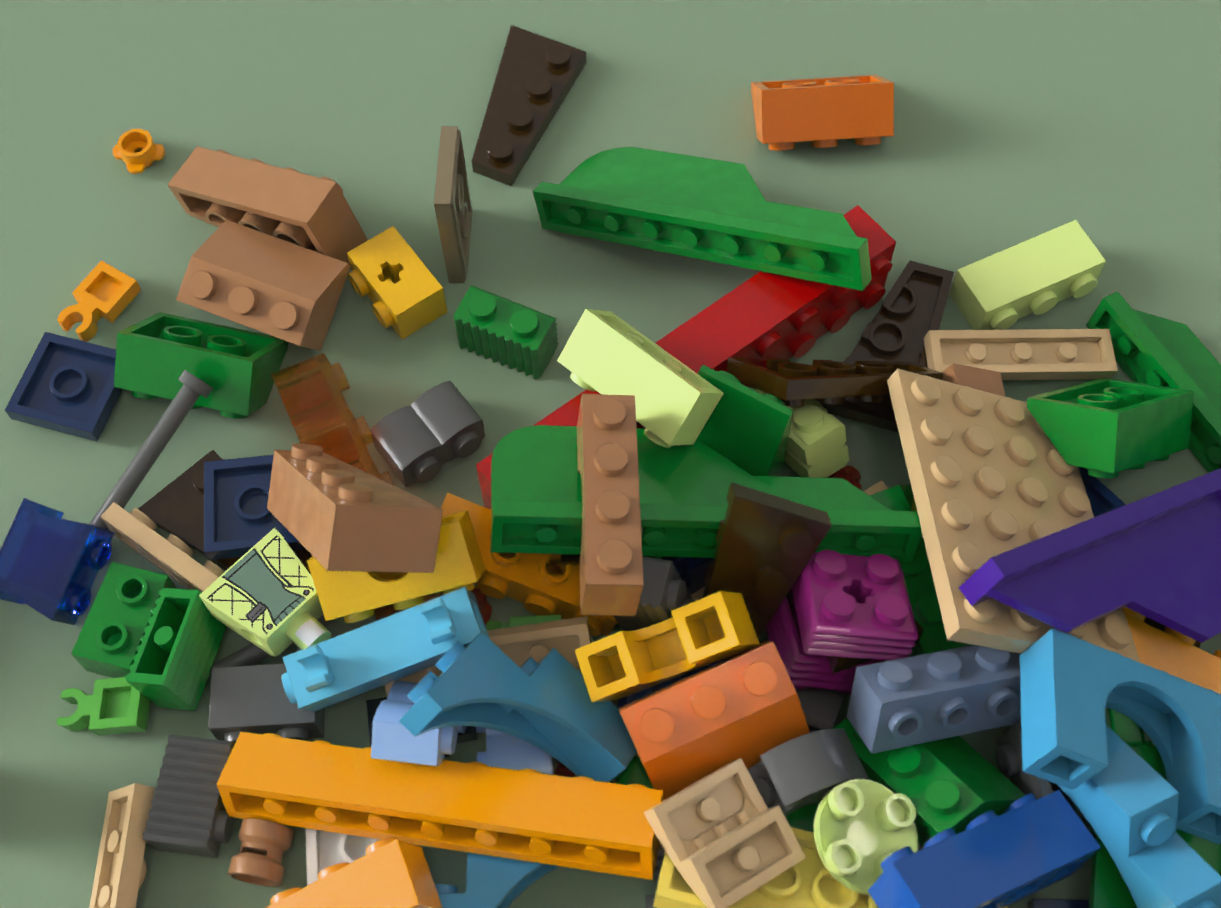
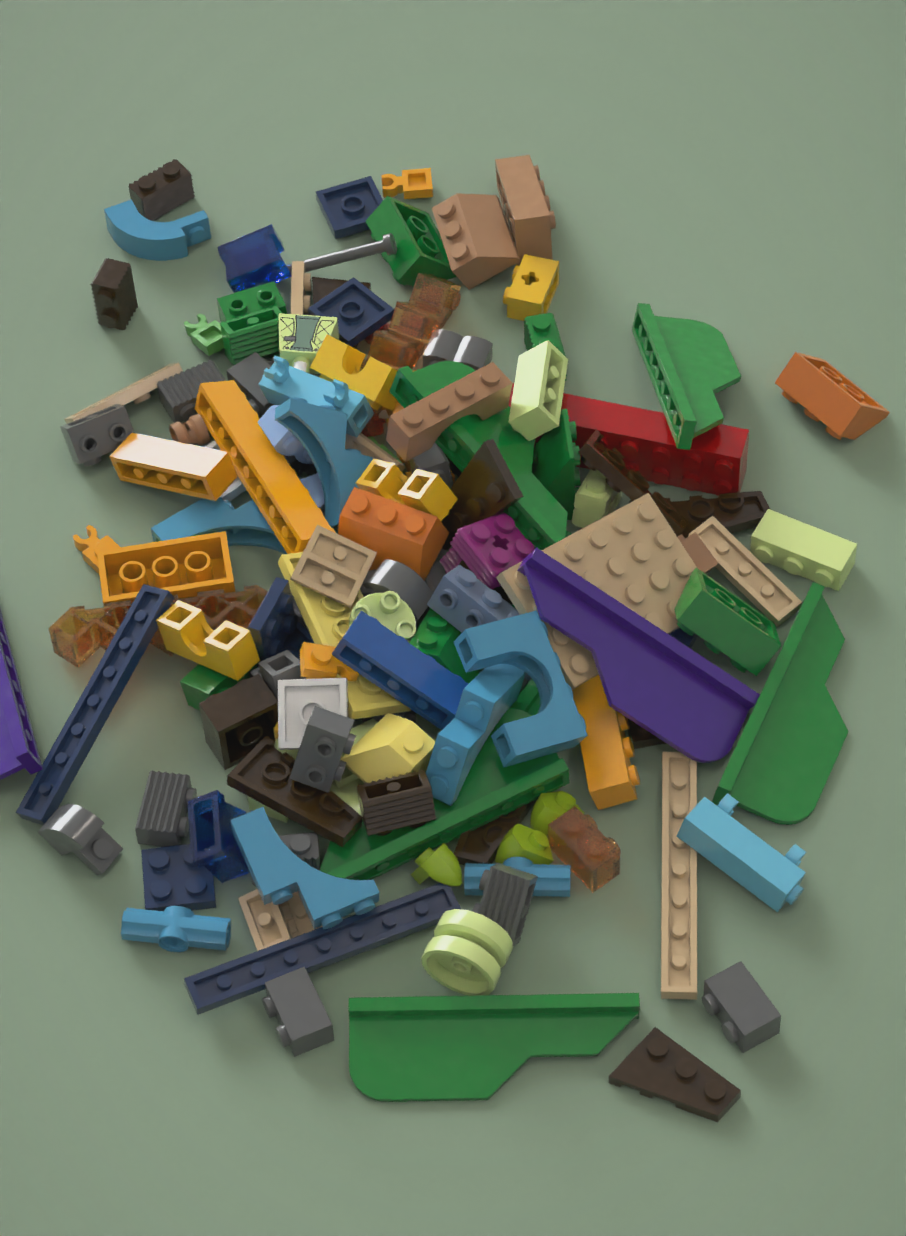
camera: 55 degrees right, 10 degrees down
(137, 150) = (511, 137): light orange plate -> none
(351, 516) = (358, 326): medium nougat wedge -> none
(453, 204) = (587, 272): dark tan tile -> none
(524, 99) = (709, 269): dark brown wing -> none

